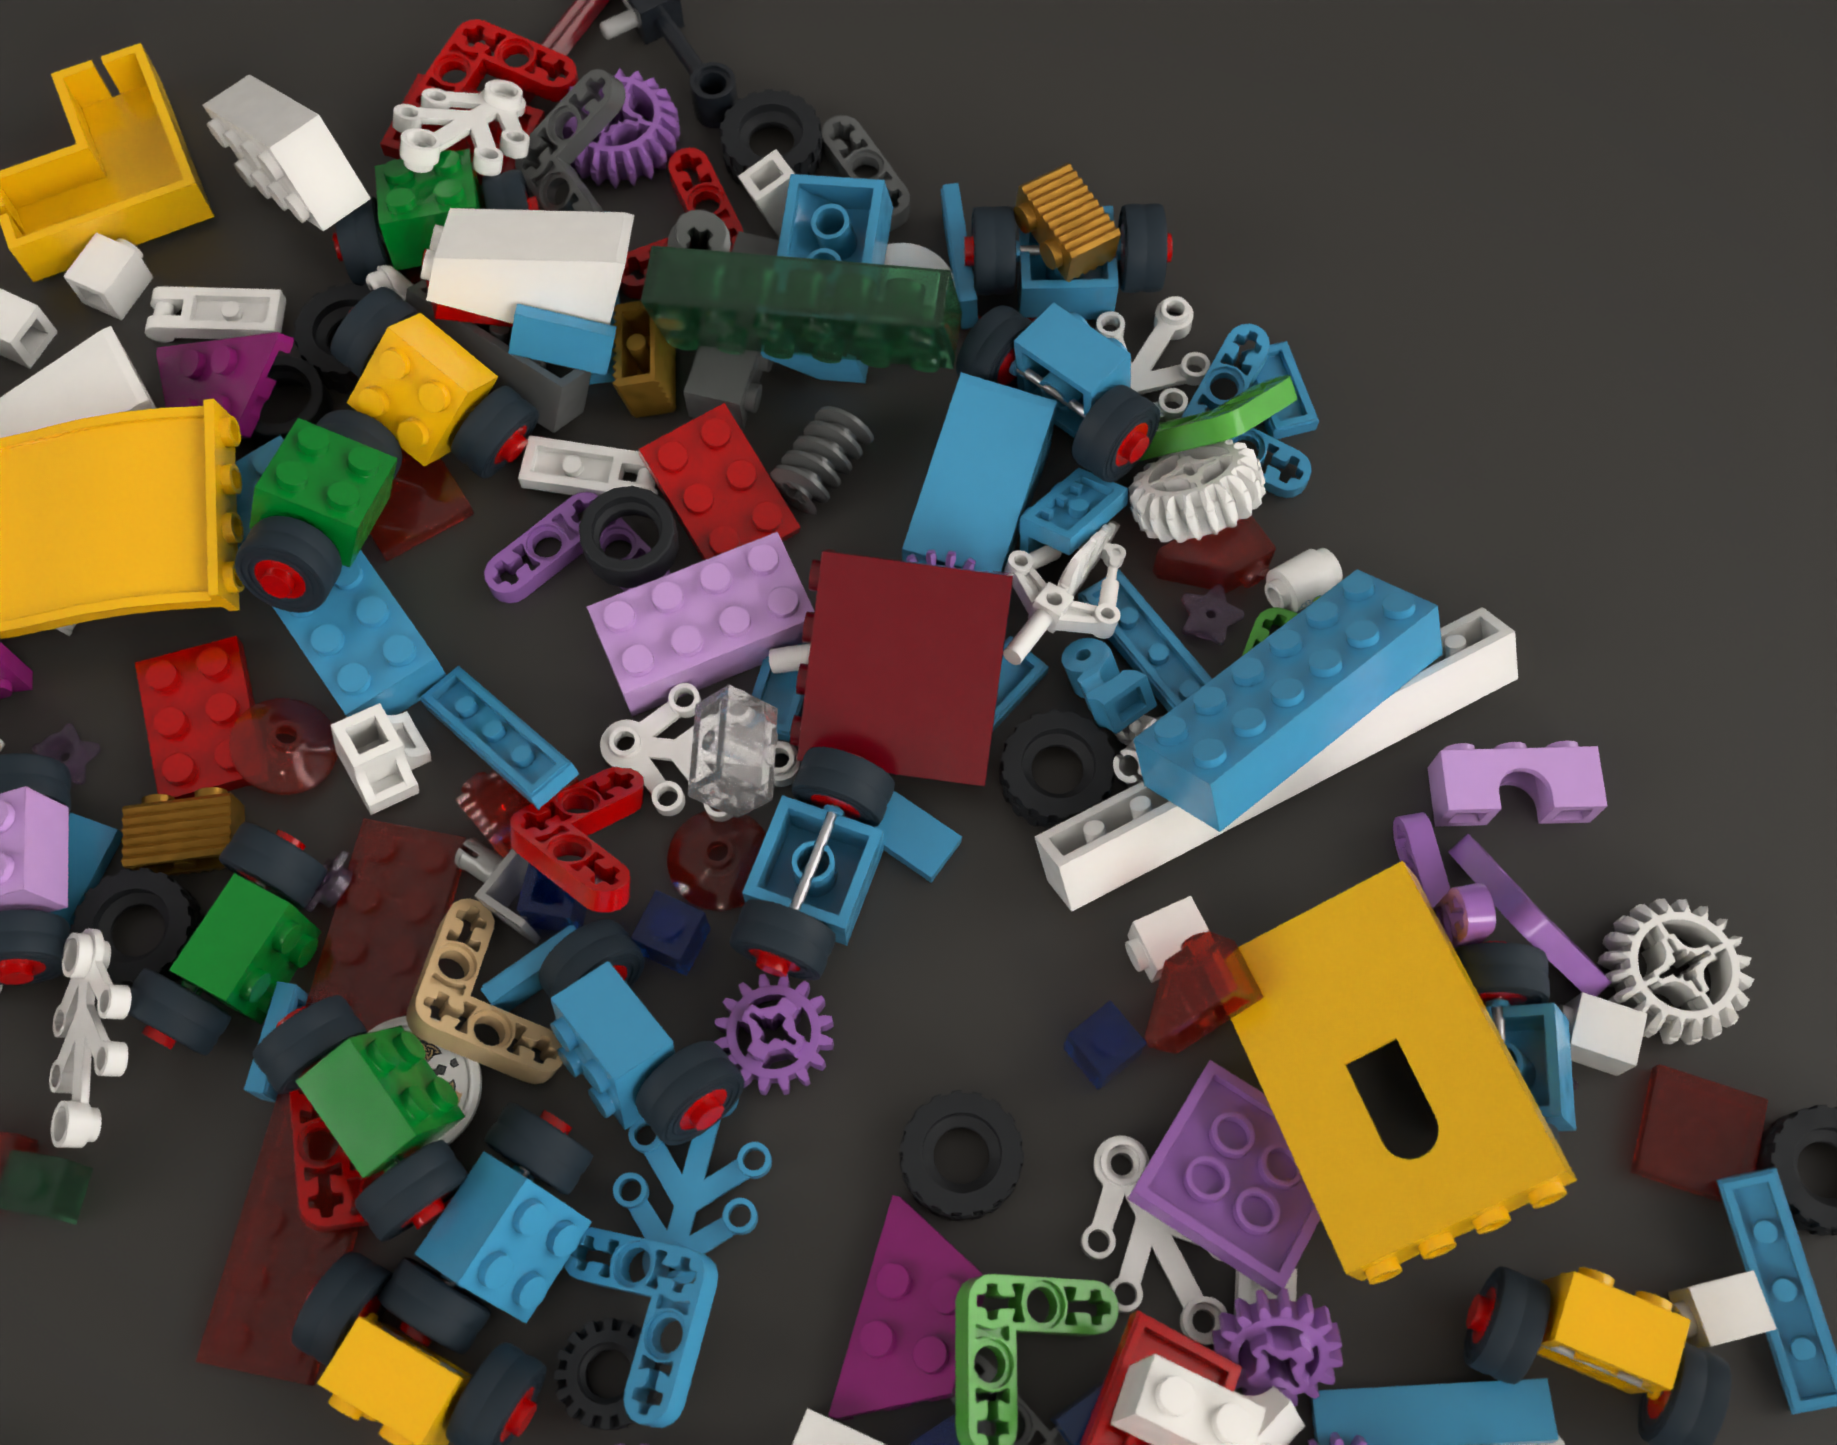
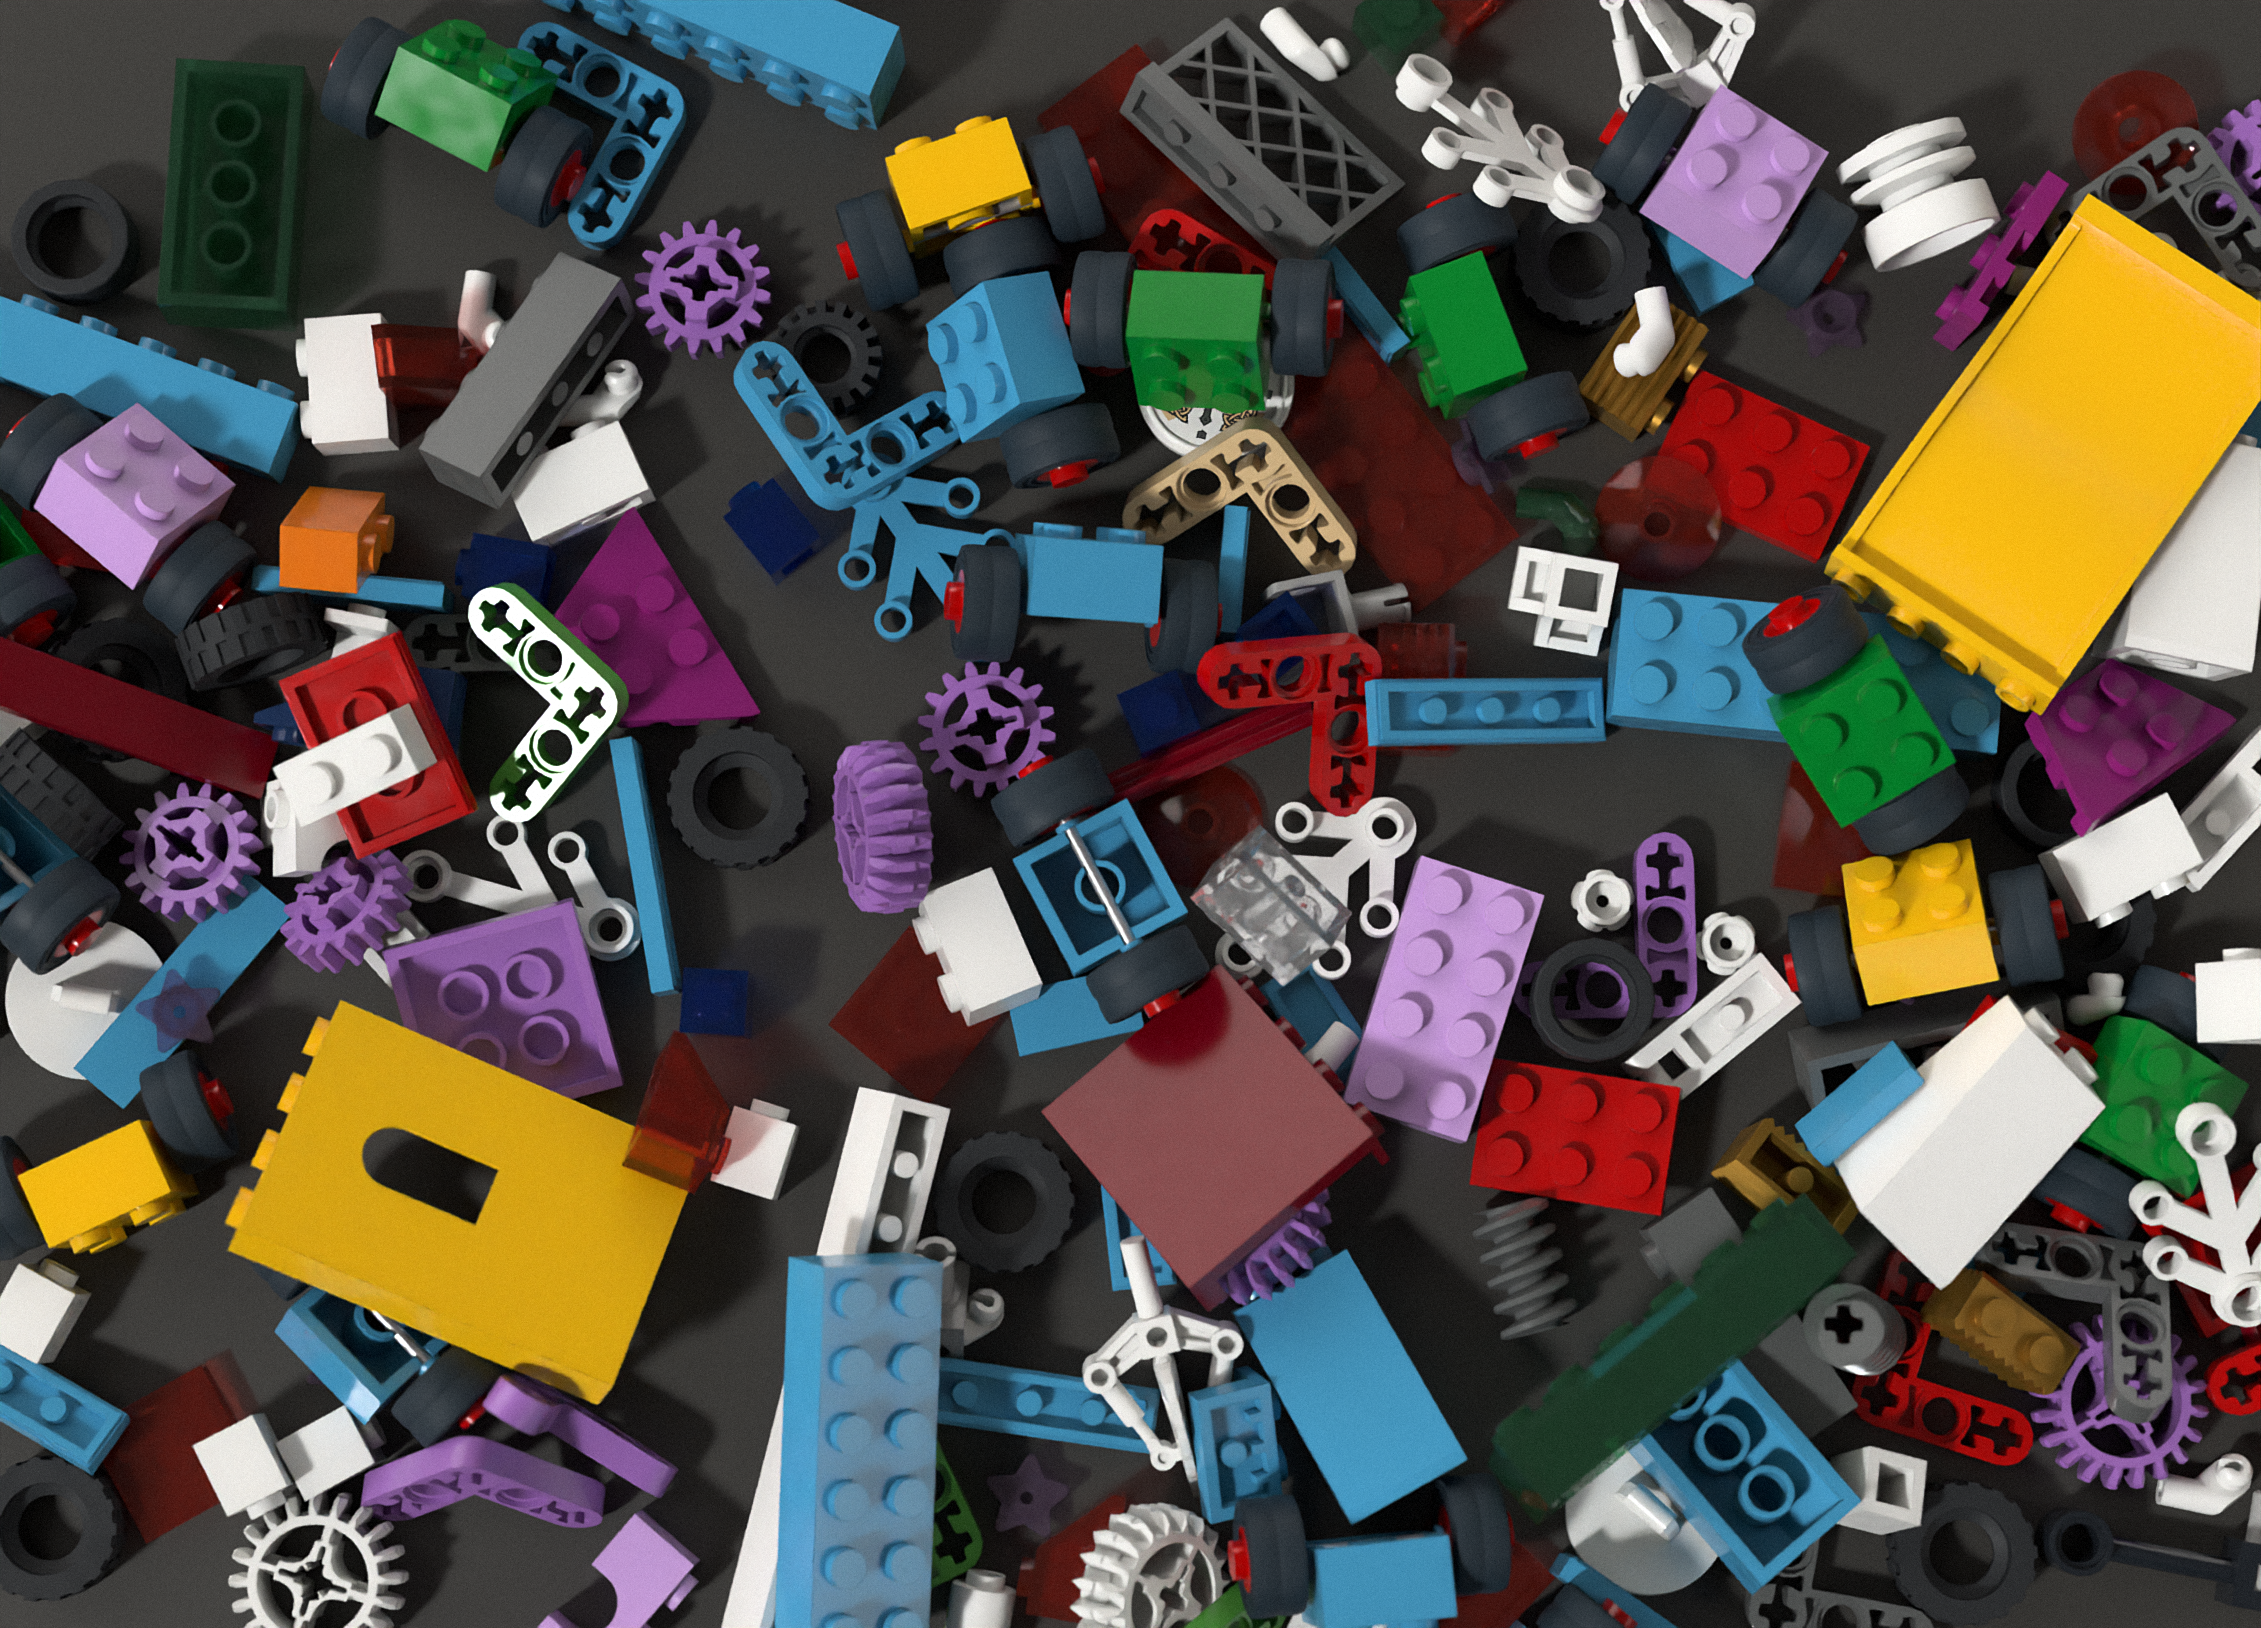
camera: 130 degrees right, 15 degrees up
(114, 1241) = (1301, 50): none -> white arm
(151, 826) = (1653, 338): none -> white arm
(237, 1203) = (1233, 168): none -> dark grey fence
(286, 308) = (2121, 860): none -> white brick
(324, 806) = (1565, 511): none -> clear green arm
(524, 495) = (1740, 933): none -> white plate
(559, 578) = (1619, 898): none -> white plate
(623, 56) = (2211, 1490): none -> white arm
(633, 189) = (2001, 1332): none -> pearl gold brick
(651, 877) = (1207, 751): none -> dark red axle
(761, 1300) = (772, 529): none -> clear blue brick
(897, 1032) = (882, 826): none -> medium lavender gear
(920, 910) = (977, 947): none -> white brick
(993, 922) = (905, 1023): none -> clear red tile
(1060, 1175) = (646, 866): none -> dark azure tile
(1111, 696) = (1056, 1320): dark azure leg -> none
(1442, 1412) = (194, 1023): none -> clear purple plate
(1667, 1072) = (246, 1467): none -> white brick

